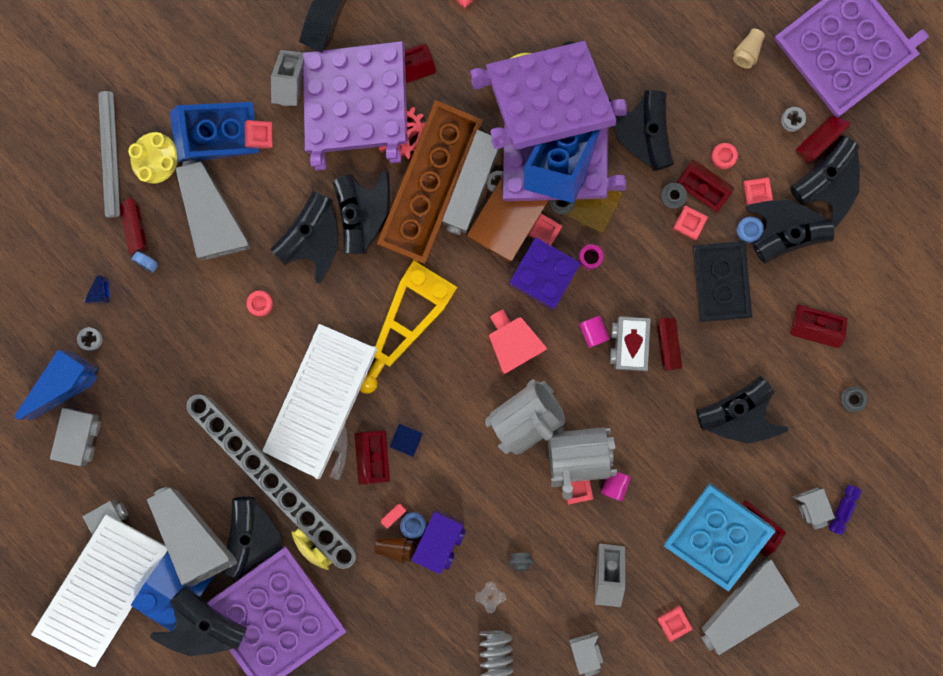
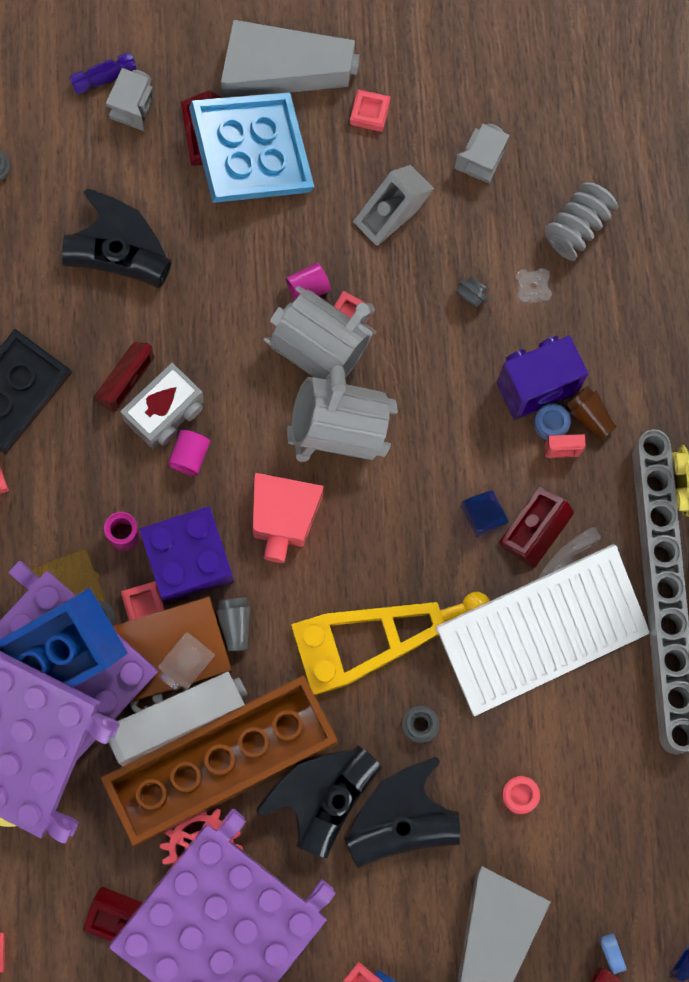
camera: 145 degrees left, 10 degrees down
(337, 288) = (432, 724): none -> dark grey plate
(488, 262) = (234, 622): none -> dark grey cone
(493, 215) = (185, 662): none -> clear bracket

